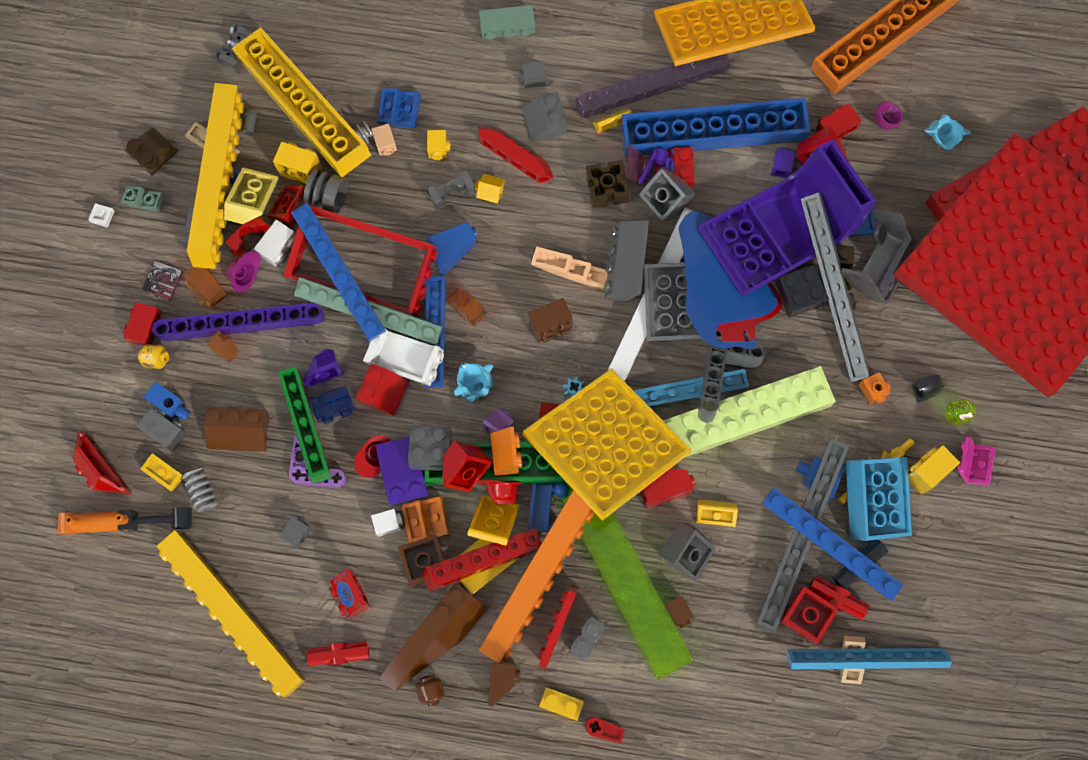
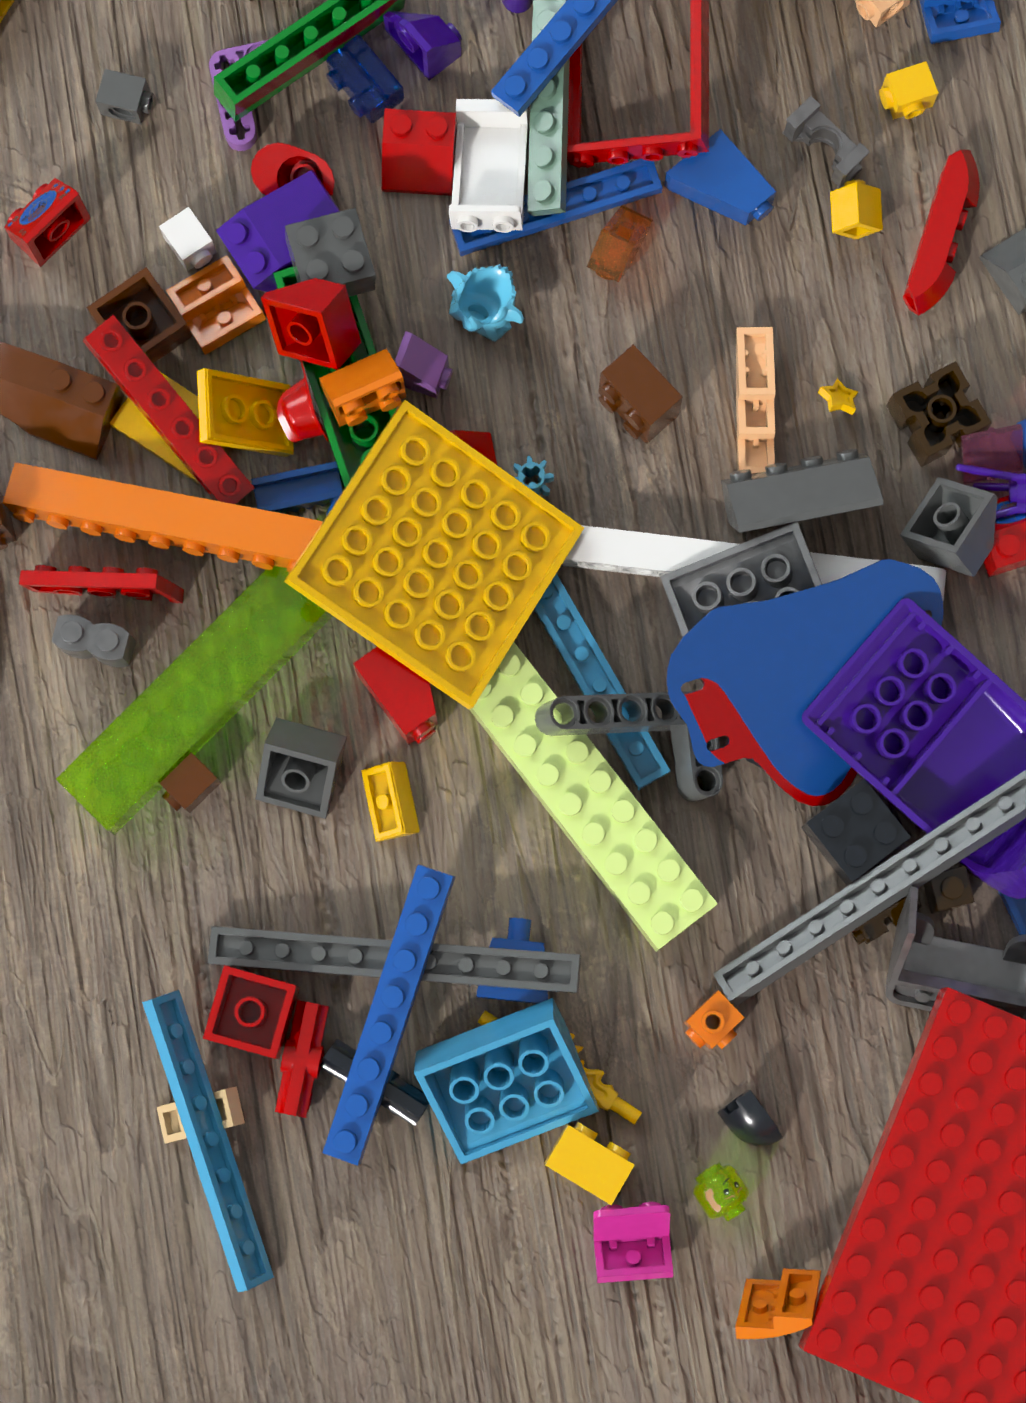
camera: 70 degrees right, 5 degrees up
(581, 228) = (839, 397): none -> yellow piece
(1026, 400) = (778, 1306): none -> orange slope

